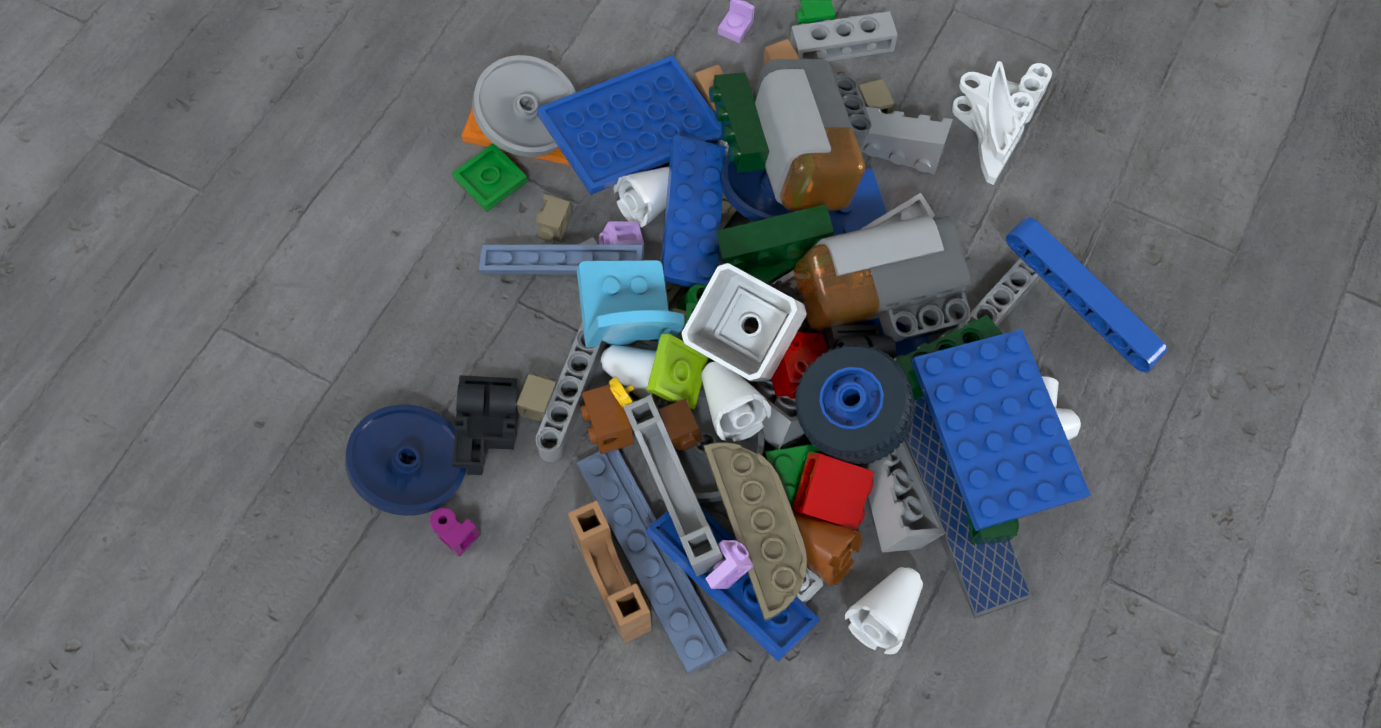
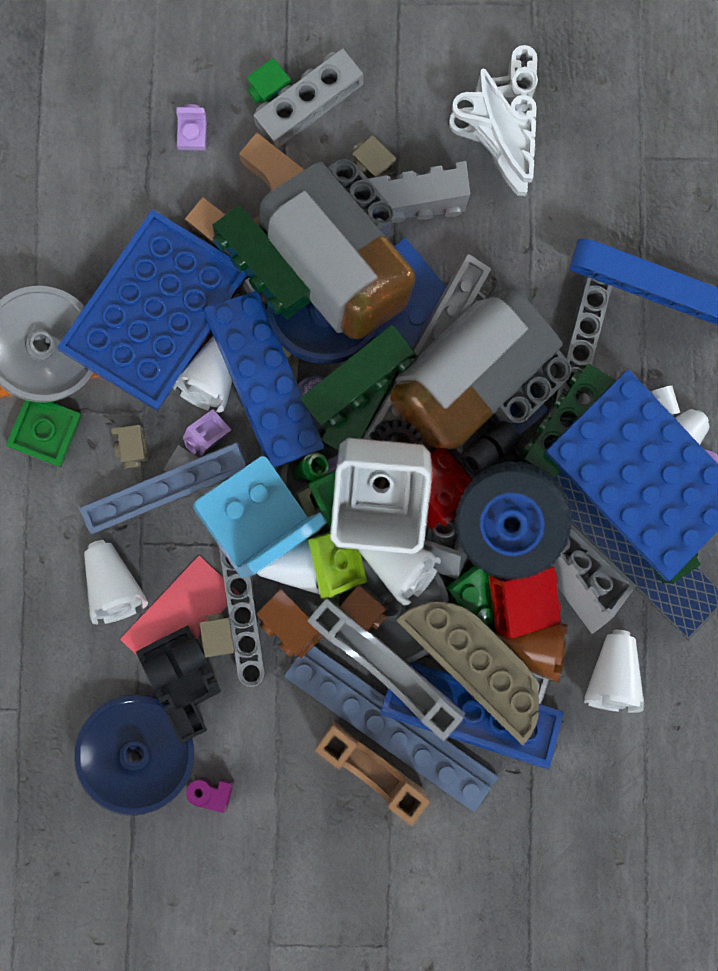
camera: 30 degrees left, 20 degrees up
(470, 317) = (110, 585): none -> white cone
(537, 357) = (186, 602): none -> coral piece
(620, 392) = (297, 602): yellow piece -> none
(732, 567) = (474, 712): lavender bracket -> none

